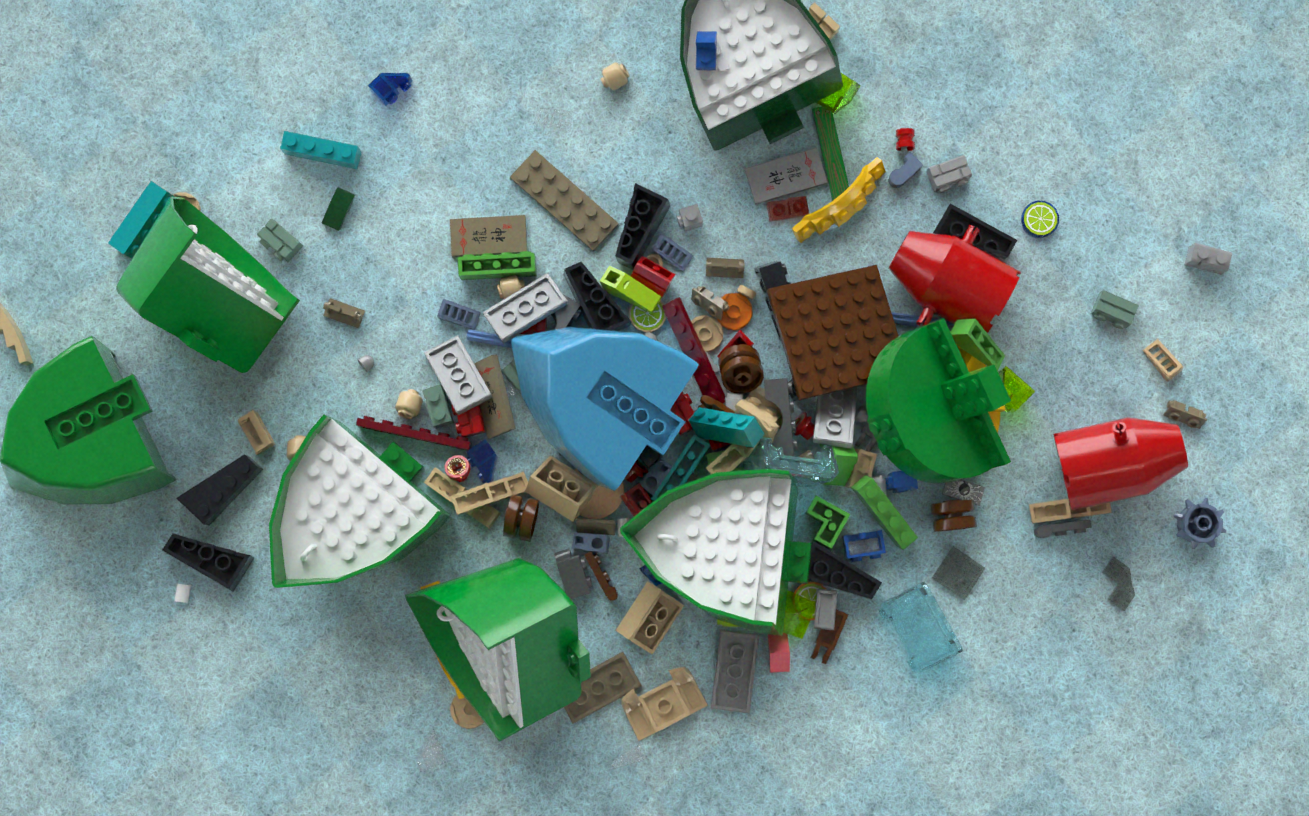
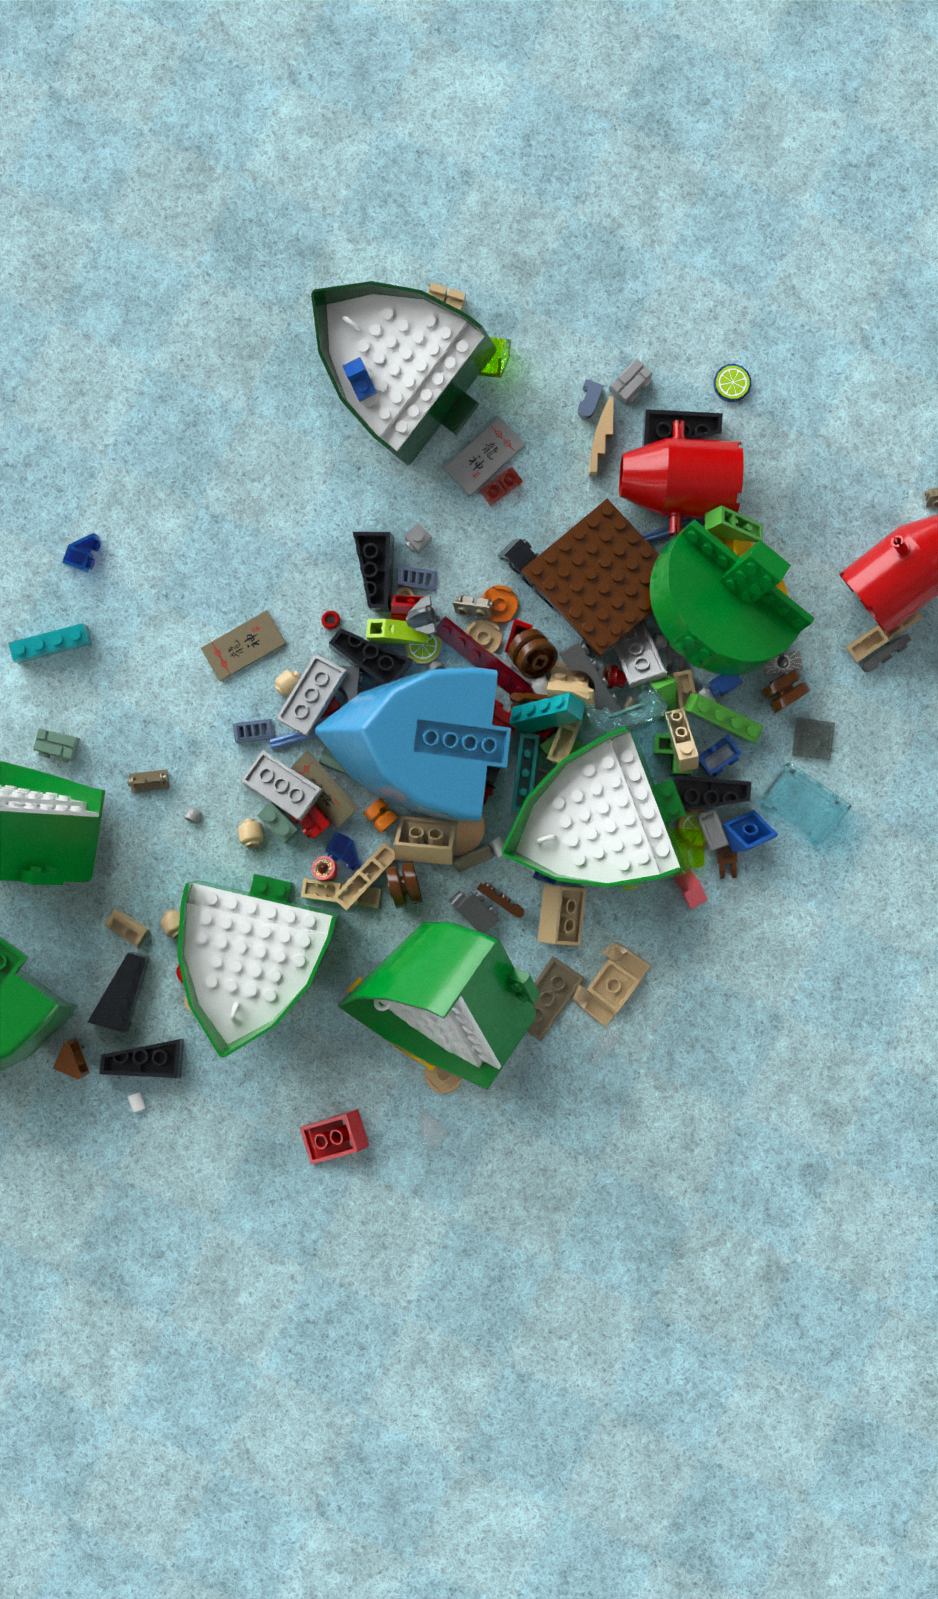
camera: 25 degrees left, 5 degrees up
(144, 525) = (71, 1060): none -> dark orange slope
(338, 208) = (94, 689): dark green slope -> none
(342, 715) = (334, 1136): none -> red slope
(406, 431) = (261, 858): dark red plate -> none
(497, 266) = (266, 669): bright green brick -> none
(532, 445) = (380, 815): none -> orange wheel
(564, 200) = (295, 579): dark tan plate -> none
(577, 245) = (326, 615): none -> red plate
(591, 542) = (476, 875): sand blue leg -> none
(615, 76) = (283, 441): tan head -> none
(636, 499) = (499, 818): red brick -> none
(655, 477) = (504, 789): sand blue leg -> none
(659, 287) = (422, 617): none -> dark grey brick
(725, 267) = (471, 568): dark tan hinge -> none
(734, 671) = (659, 924): light grey tile -> none
(746, 292) = (502, 580): tan tile -> none
(830, 151) = (520, 422): green tile -> none
(836, 513) = (682, 740): none -> tan slope
(842, 207) = (552, 458): yellow piece -> none
(856, 627) = (748, 832): none -> blue slope
(902, 204) = (603, 431): none -> tan slope
(905, 138) = (575, 369): red wheel -> none
(1016, 388) = (786, 548): clear neon green slope -> none
(1114, 309) = (838, 433): sand green brick -> none
(1157, 363) = (899, 463): tan slope -> none
(1208, 258) = (900, 344): light grey brick -> none

